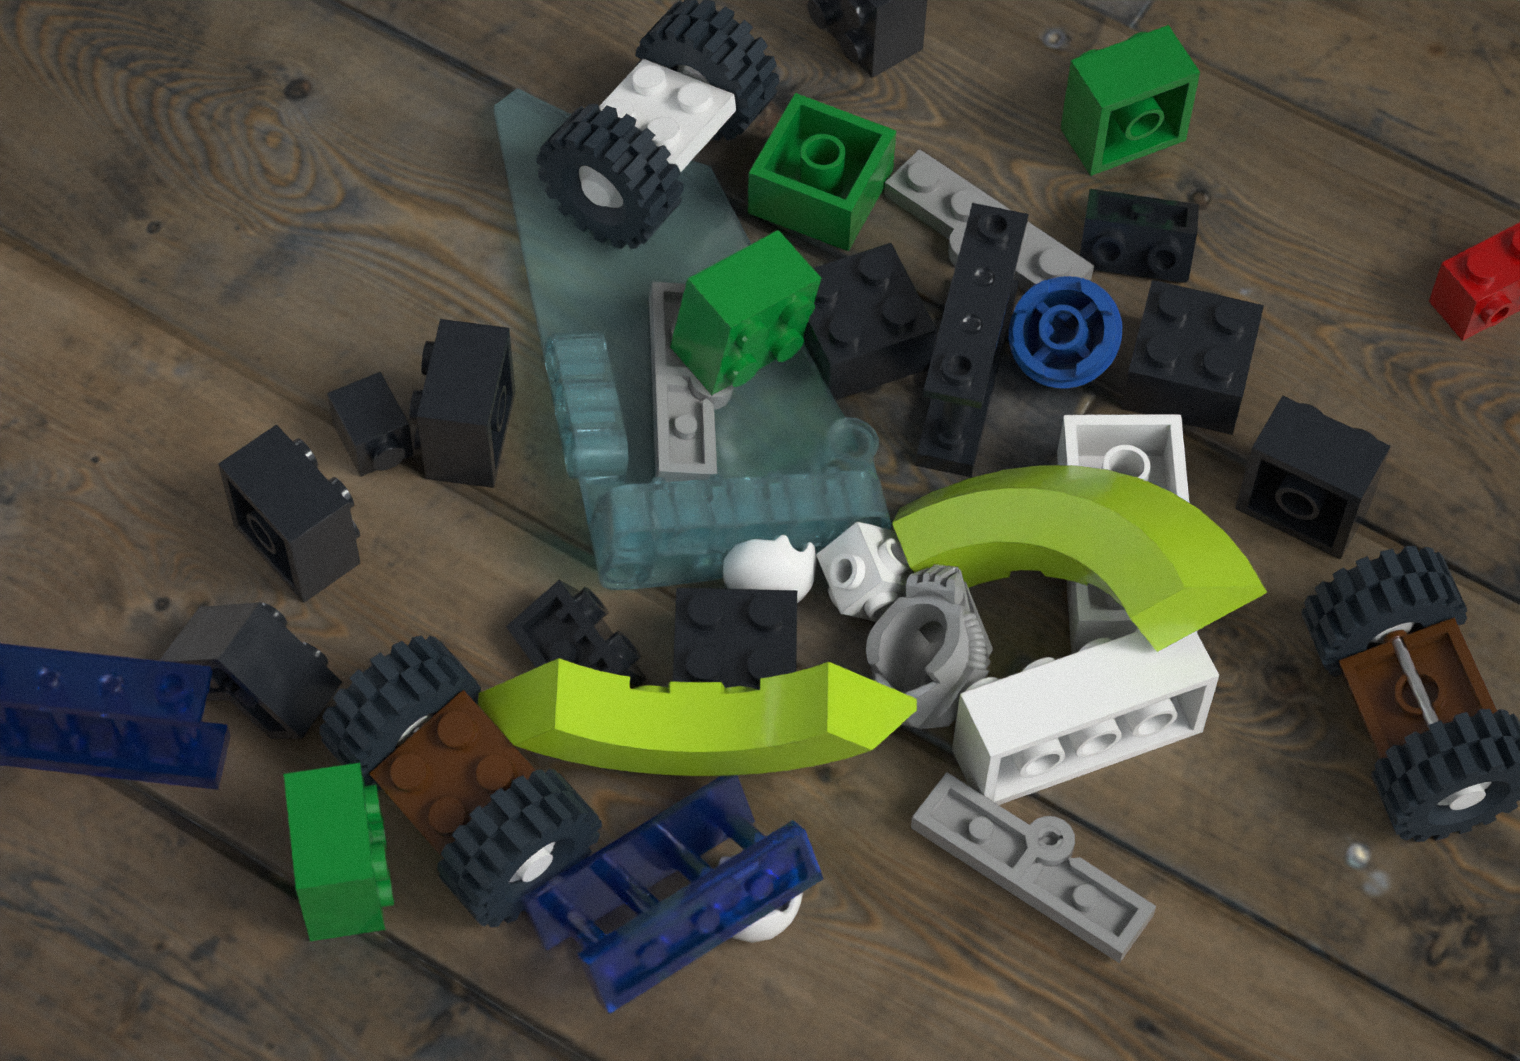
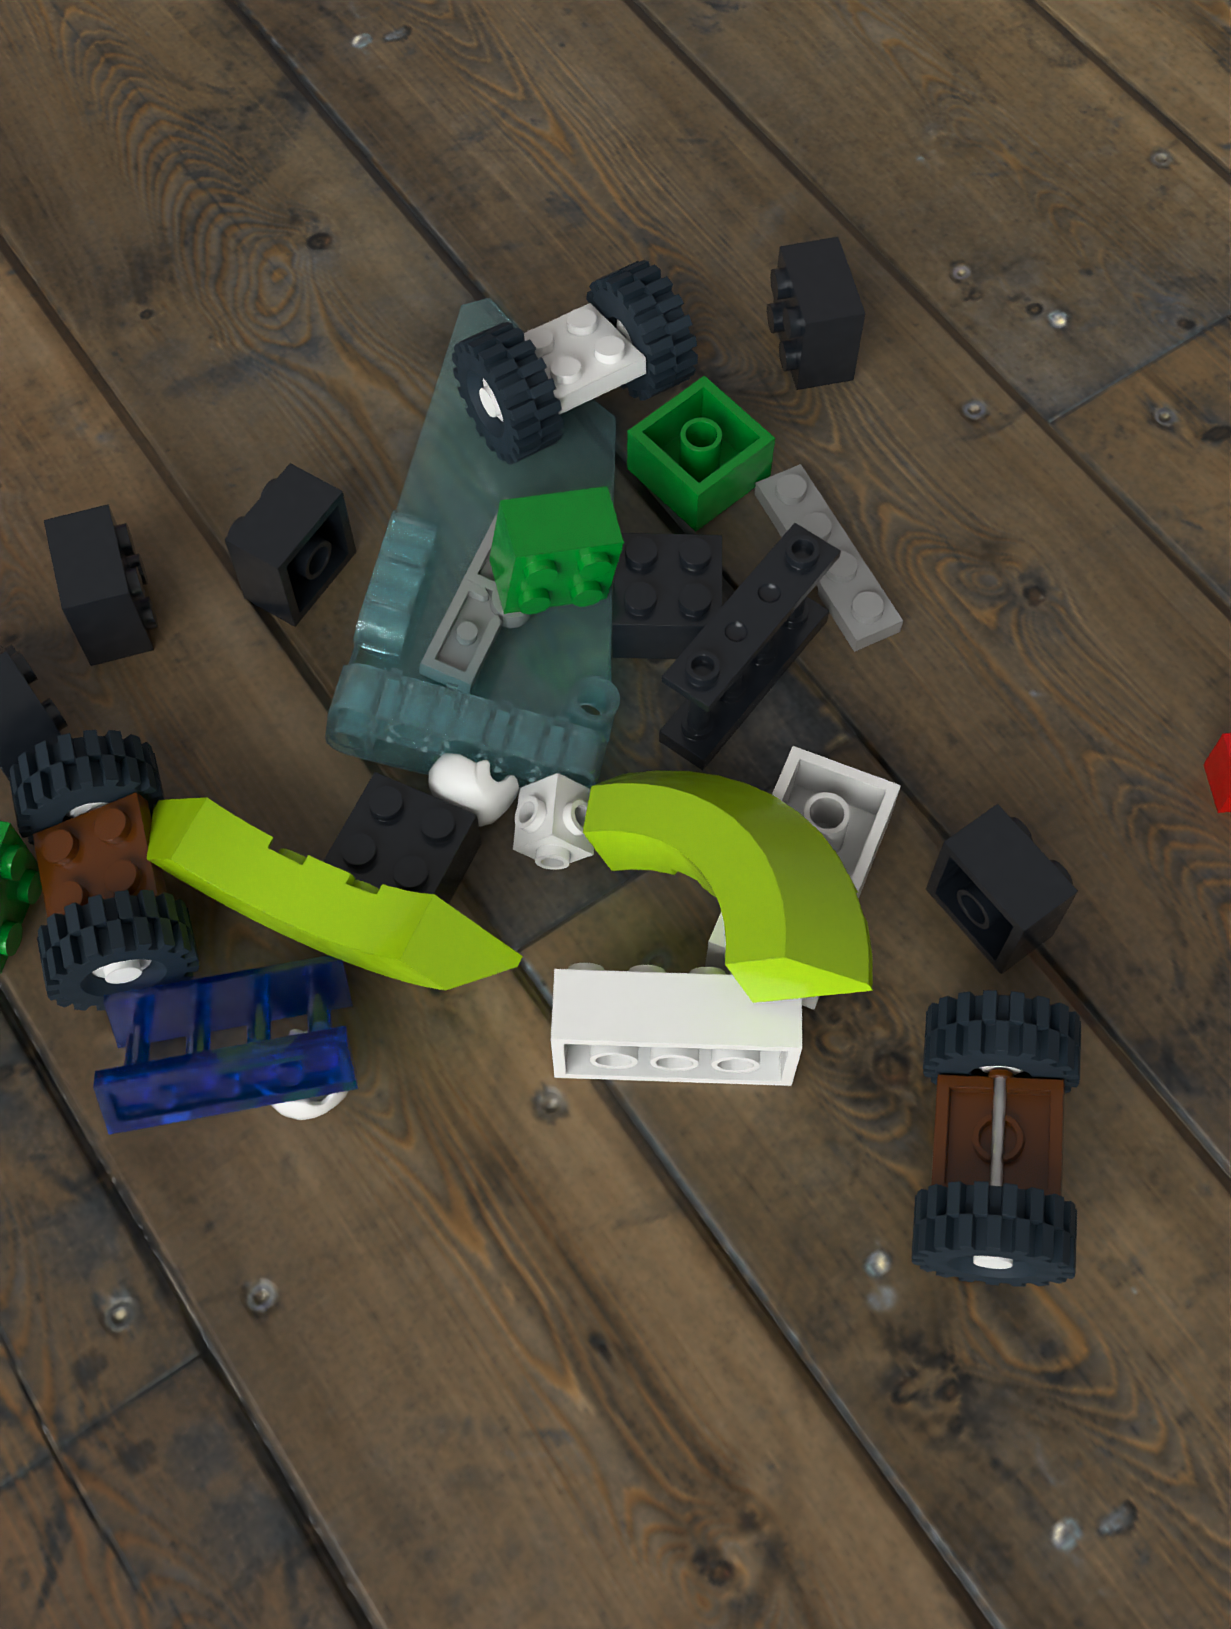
camera: 25 degrees right, 5 degrees up
(370, 424) = (205, 529): black brick -> none
(572, 628) = (282, 787): black bracket -> none
(941, 657) = (564, 929): light grey helmet -> none
(1034, 865) = (569, 1151): light grey hinge -> none
(1065, 332) = (838, 670): blue cone -> none
(1129, 99) = (1004, 482): green brick -> none
(1139, 235) = (958, 607): black bracket -> none
(1192, 356) = (948, 735): black brick -> none

